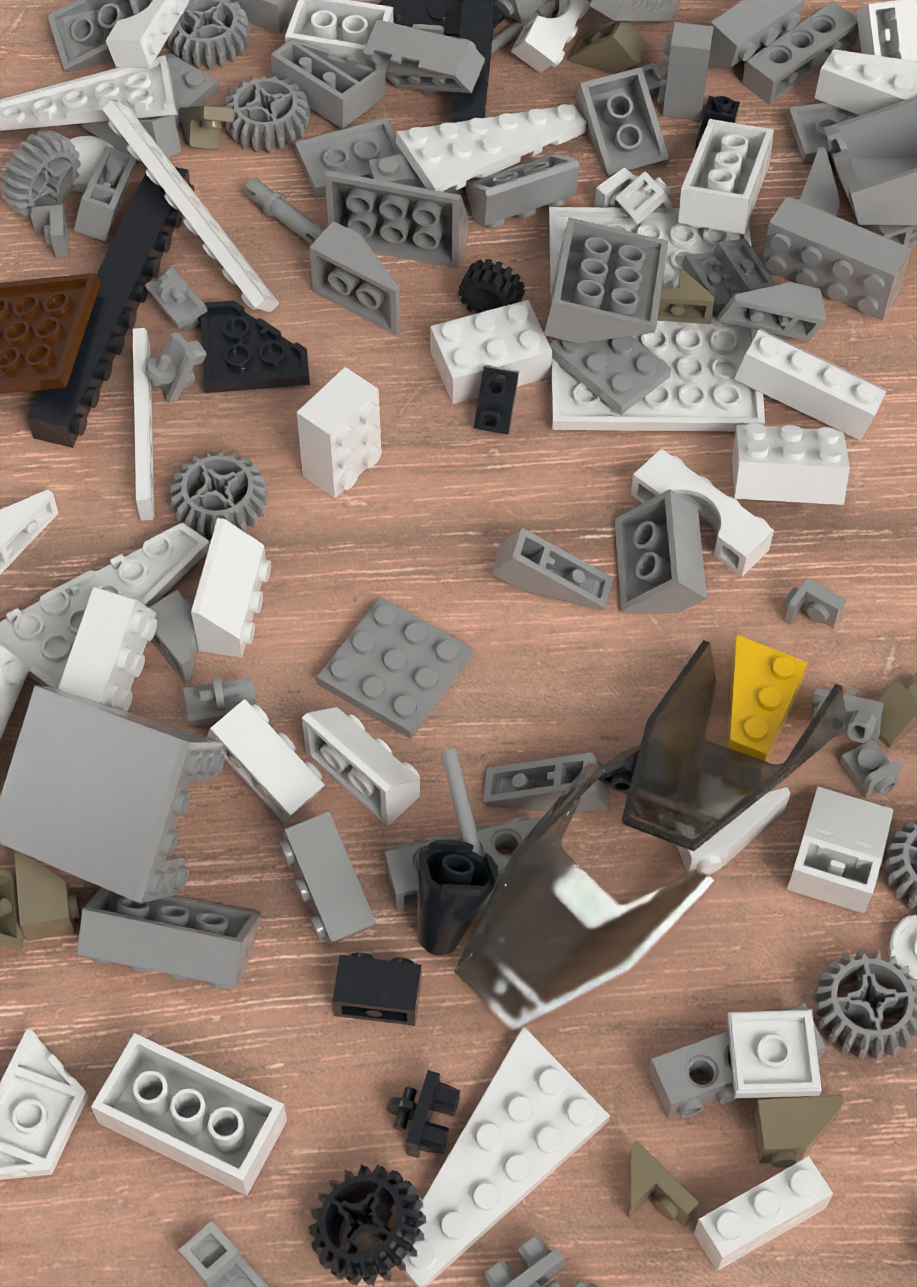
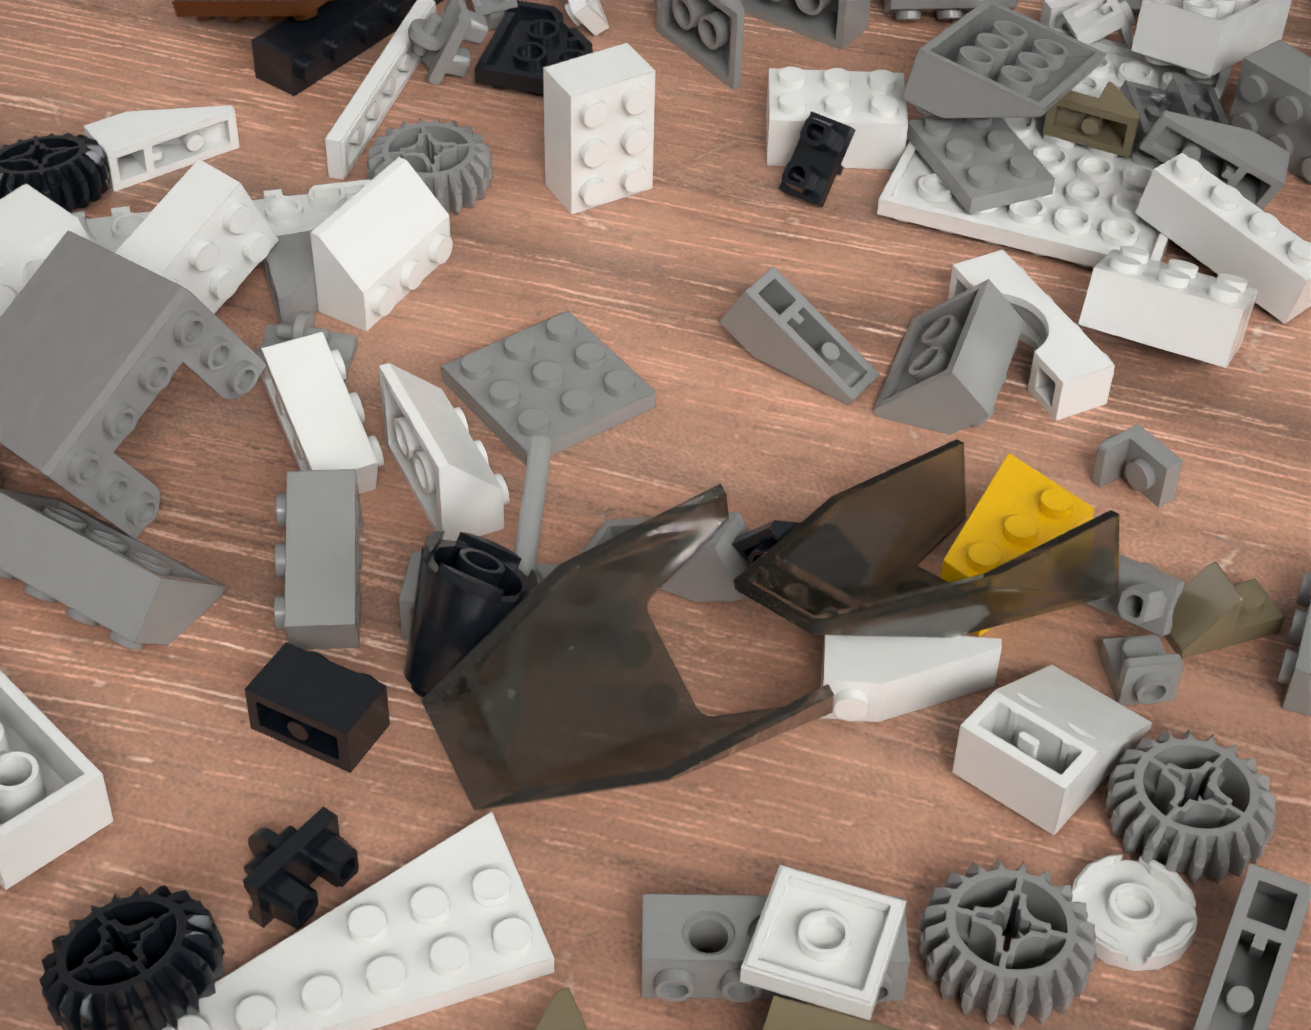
camera: 20 degrees right, 15 degrees down
(490, 286) = (870, 41): black tyre -> none

